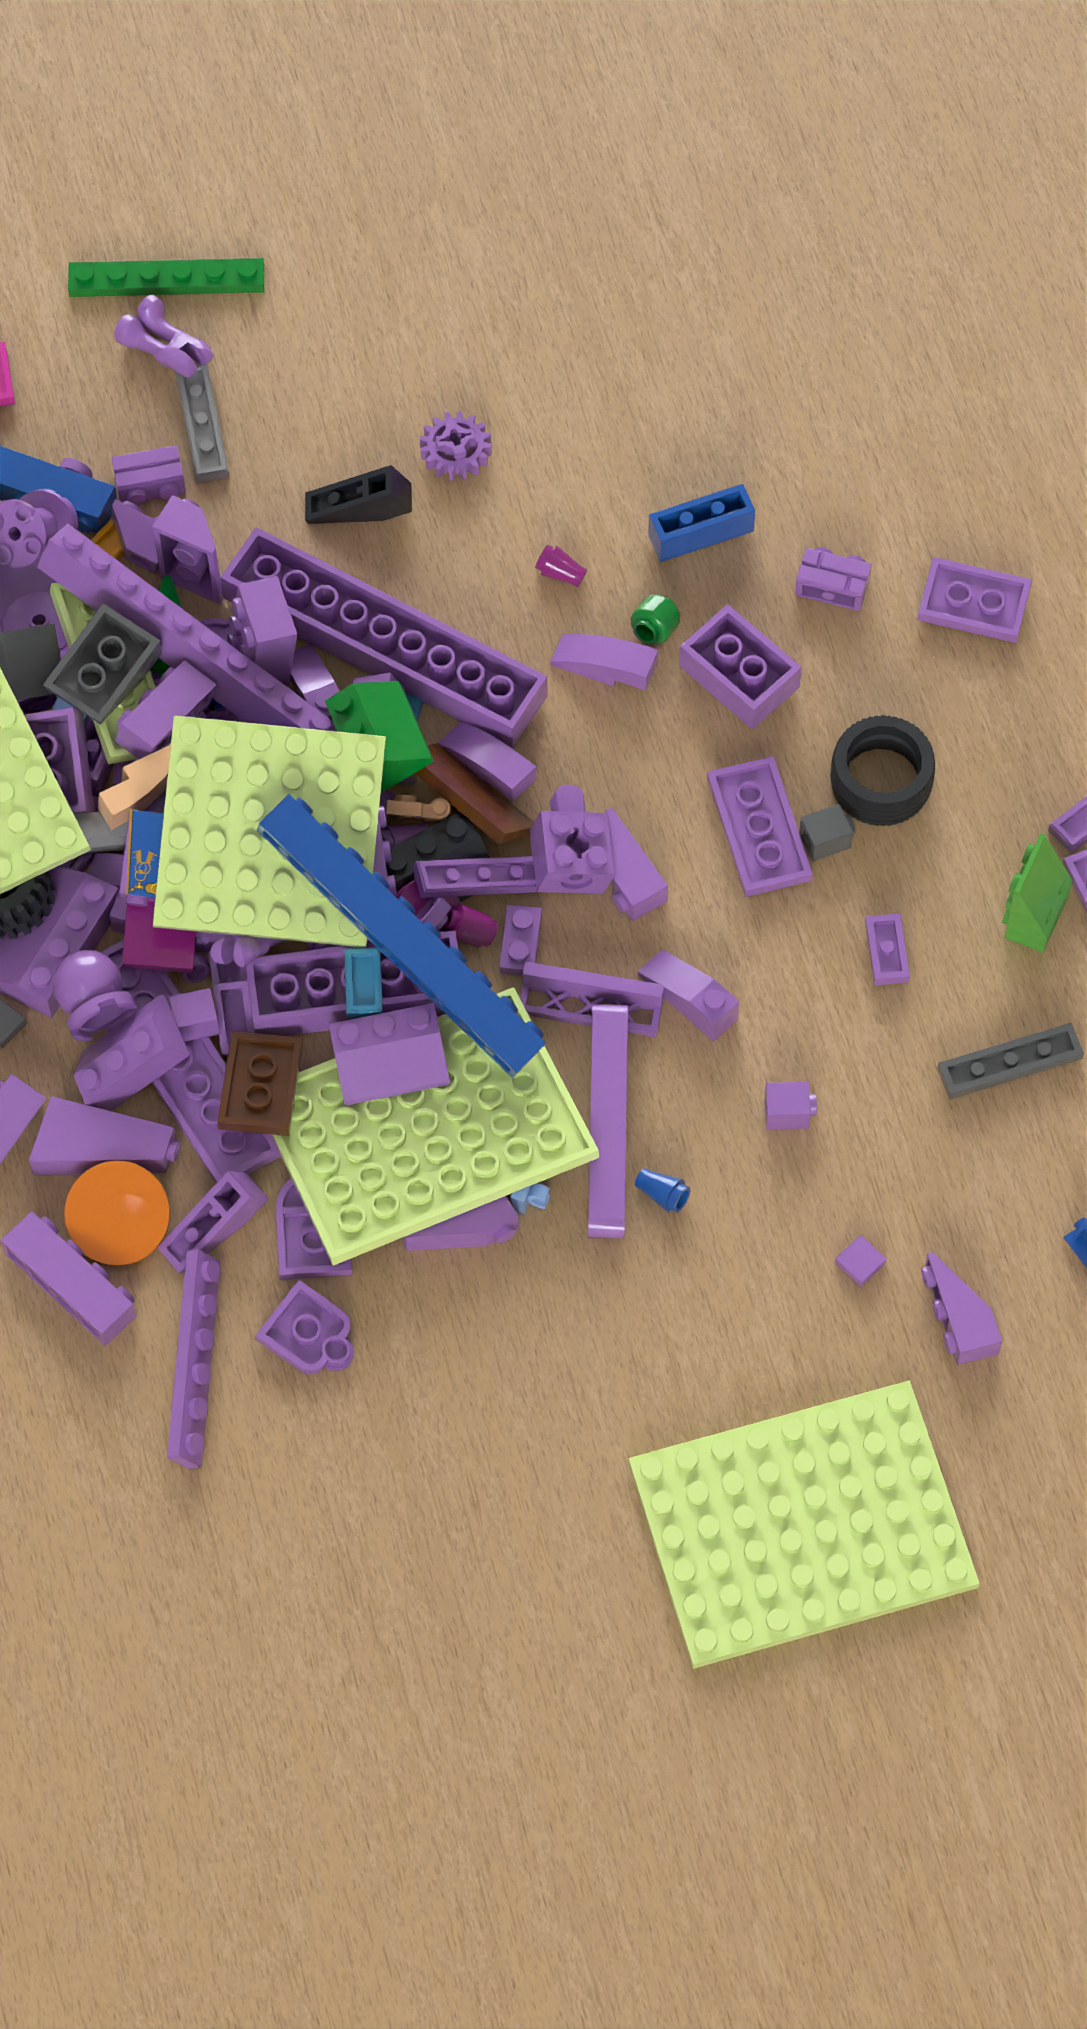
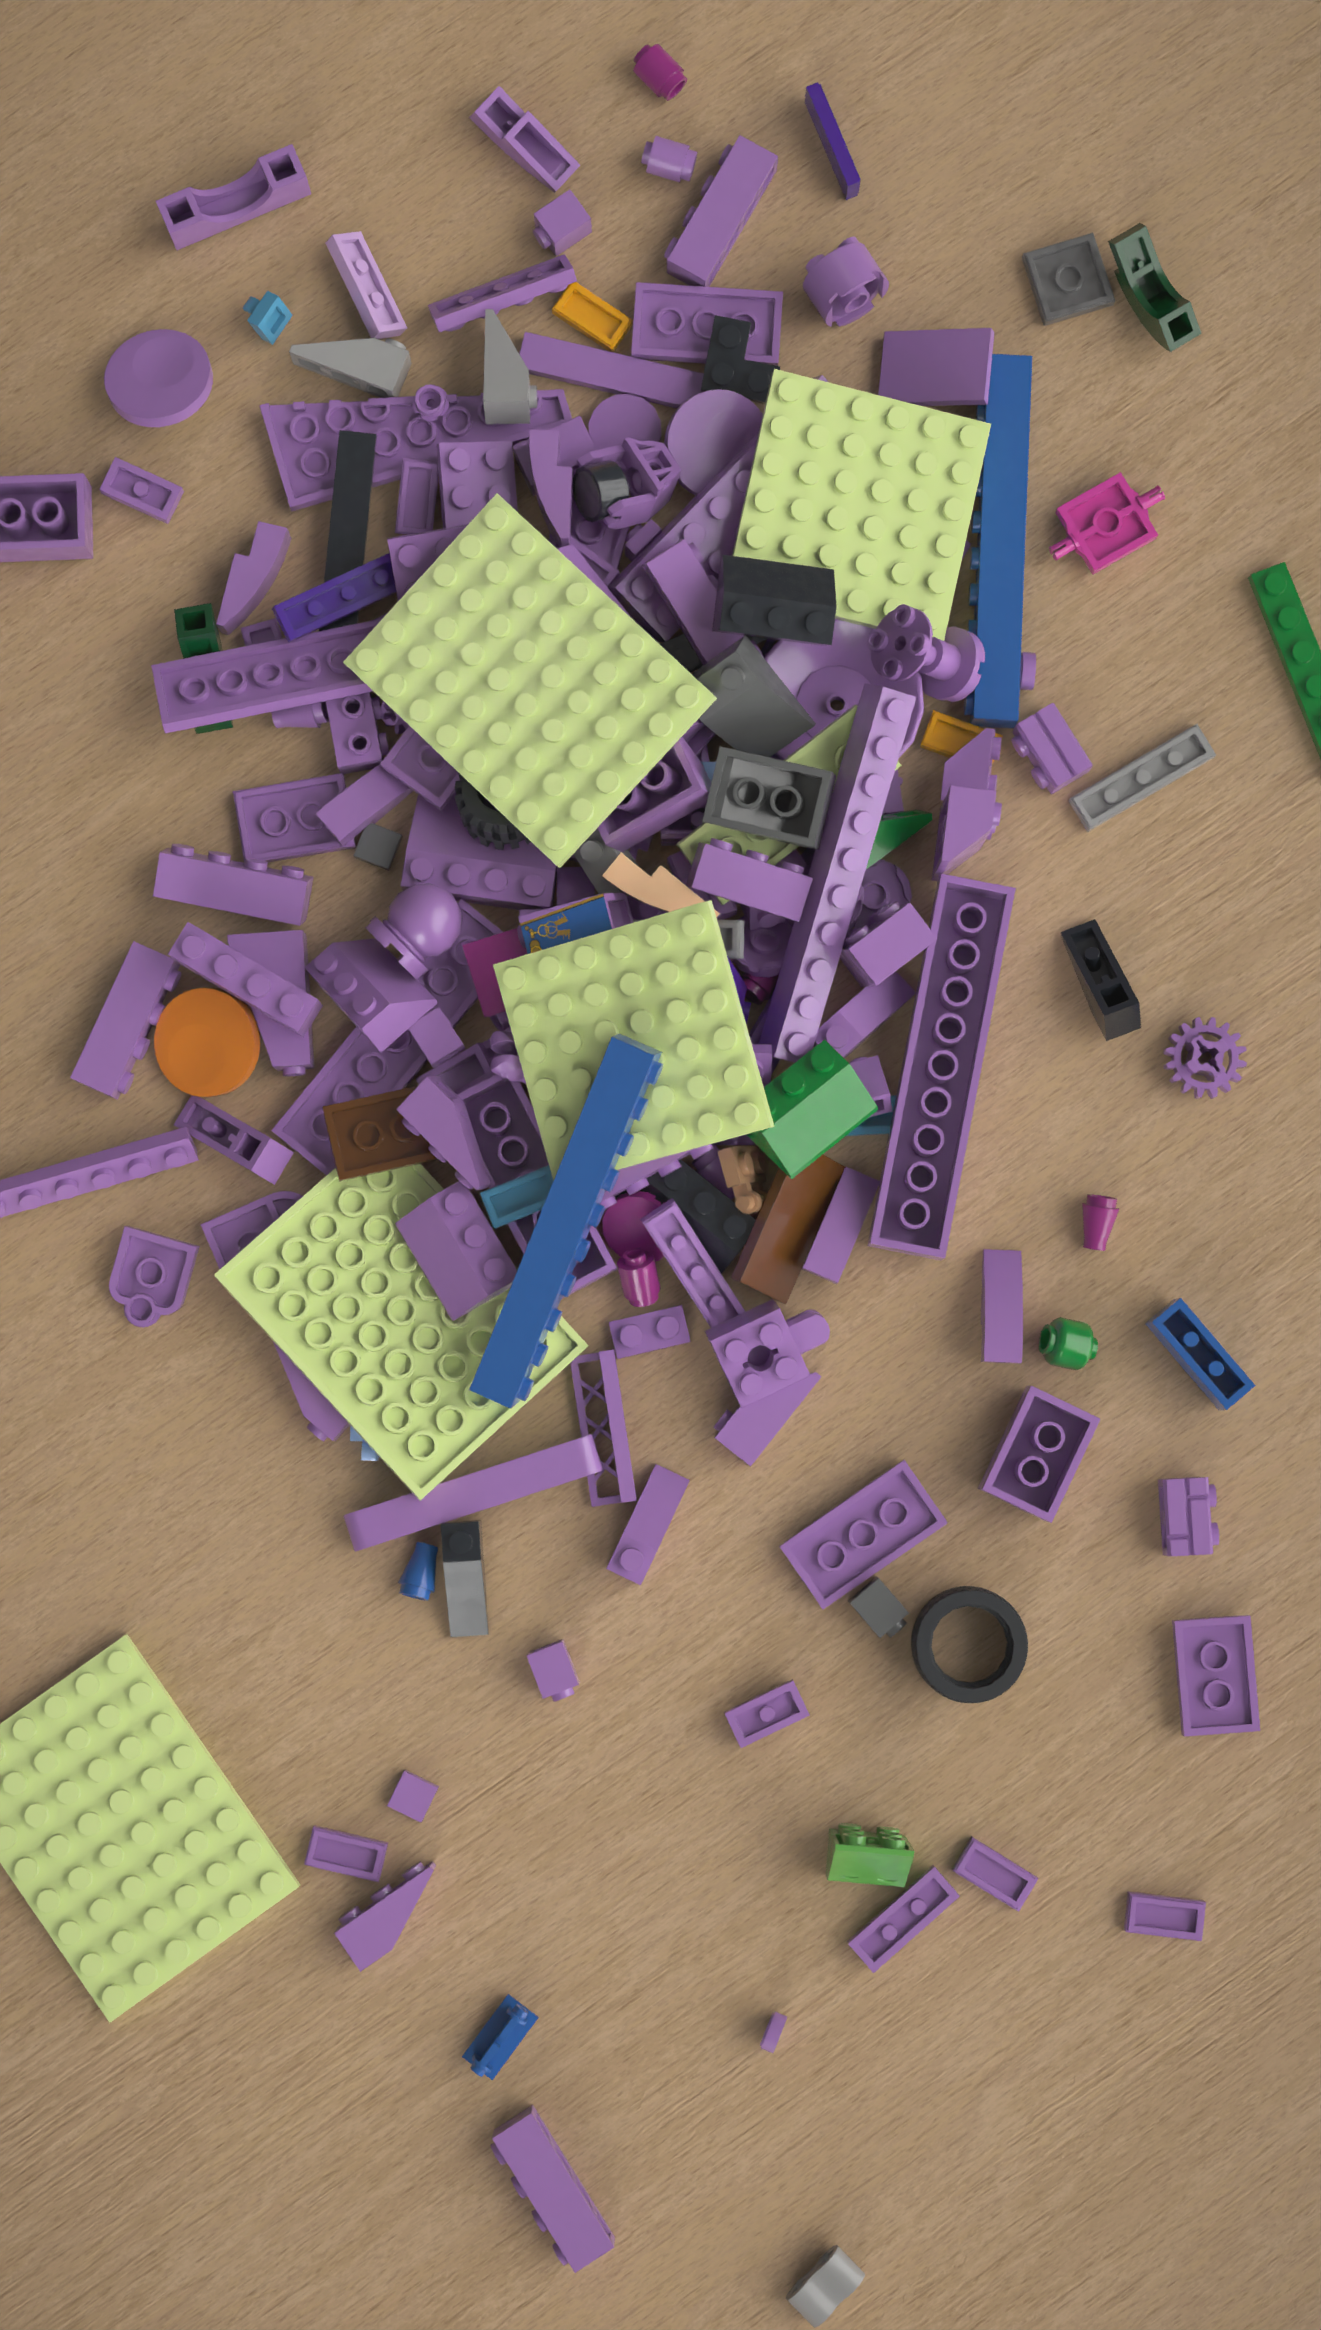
camera: 70 degrees right, 20 degrees up
(77, 1146) = (245, 979): none -> medium lavender brick
(181, 348) = (1246, 676): medium lavender piece -> none
(272, 1020) = (445, 1124): none -> medium lavender slope
(435, 912) = (626, 1236): medium lavender plate -> none
(679, 1152) = (465, 1578): none -> slope
(893, 1334) = (346, 1853): none -> medium lavender tile
(1010, 1061) = (683, 1881): dark grey plate -> none

